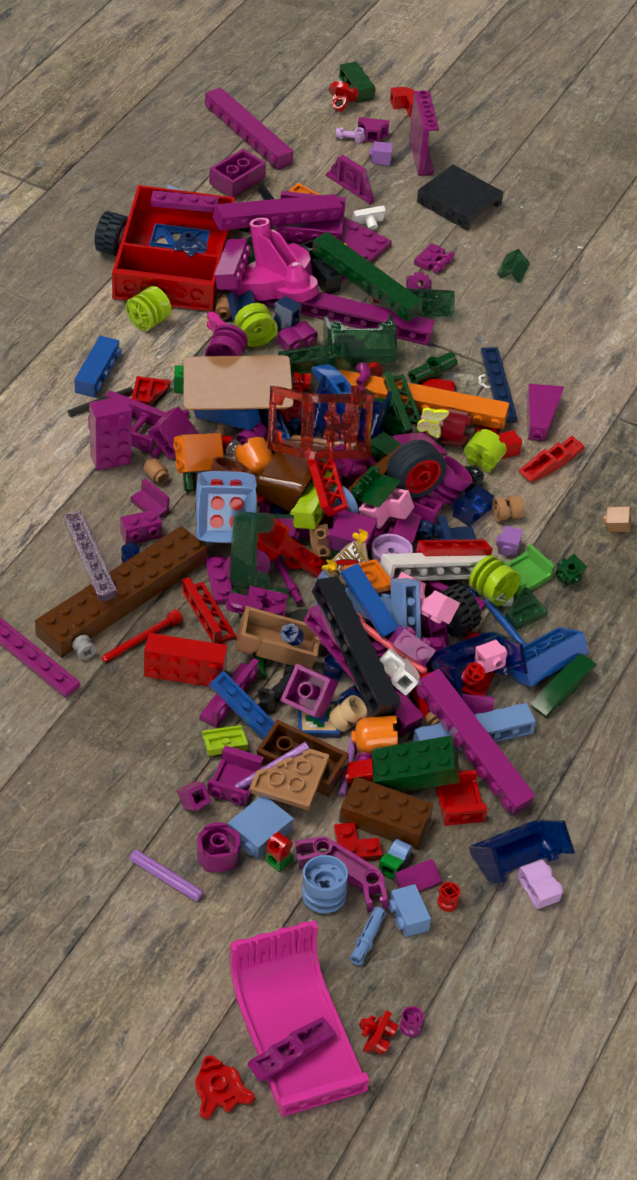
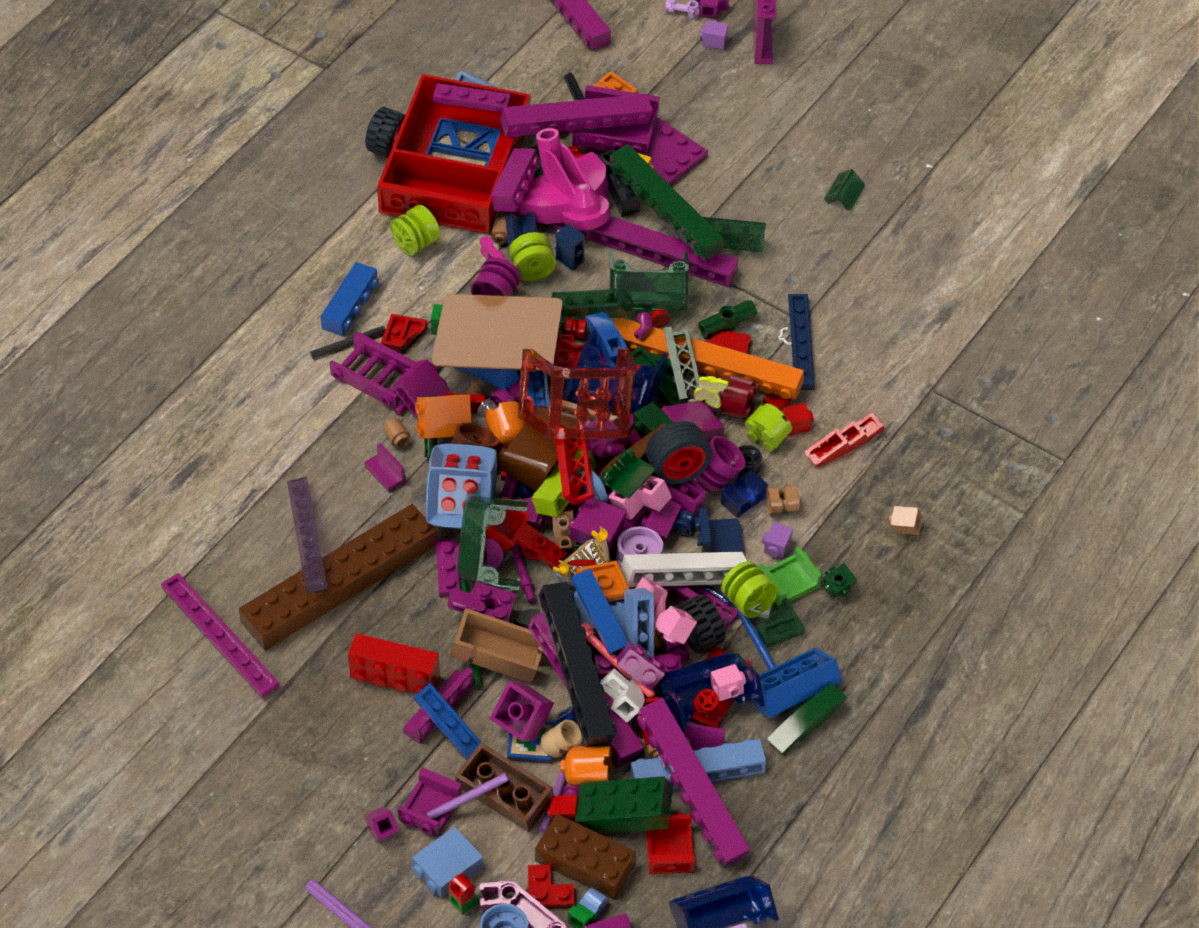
camera: 10 degrees right, 5 degrees up
(84, 647) = (289, 641): light grey wheel -> none
(110, 432) = (347, 388): magenta brick -> none
(128, 551) = (353, 527): clear blue wheel -> none
(141, 527) = (370, 501): magenta brick -> none
(173, 618) = (389, 612): red piece -> none
(189, 244) = (469, 155): dark blue plate -> none
(204, 615) = (425, 609): red fence -> none
(217, 738) = (427, 756): lime plate -> none
(218, 847) = (398, 884): magenta brick -> none
(237, 173) = (542, 56): magenta brick -> none
(268, 696) = (479, 712): black piece -> none
(292, 779) = (487, 813): medium nougat plate -> none
(294, 638) = (515, 647): clear blue wheel -> none
(297, 337) = (579, 272): magenta brick -> none
(332, 668) = (553, 685): clear blue wheel -> none
(351, 177) = (674, 68): magenta wing -> none
(369, 216) = (686, 118): white tile -> none
(412, 281) = (729, 201): magenta brick -> none
(434, 258) = (749, 173): magenta plate -> none
(454, 547) = (709, 548): red fence -> none
(458, 196) = (795, 95): black panel -> none
(541, 409) = (845, 374): magenta slope -> none

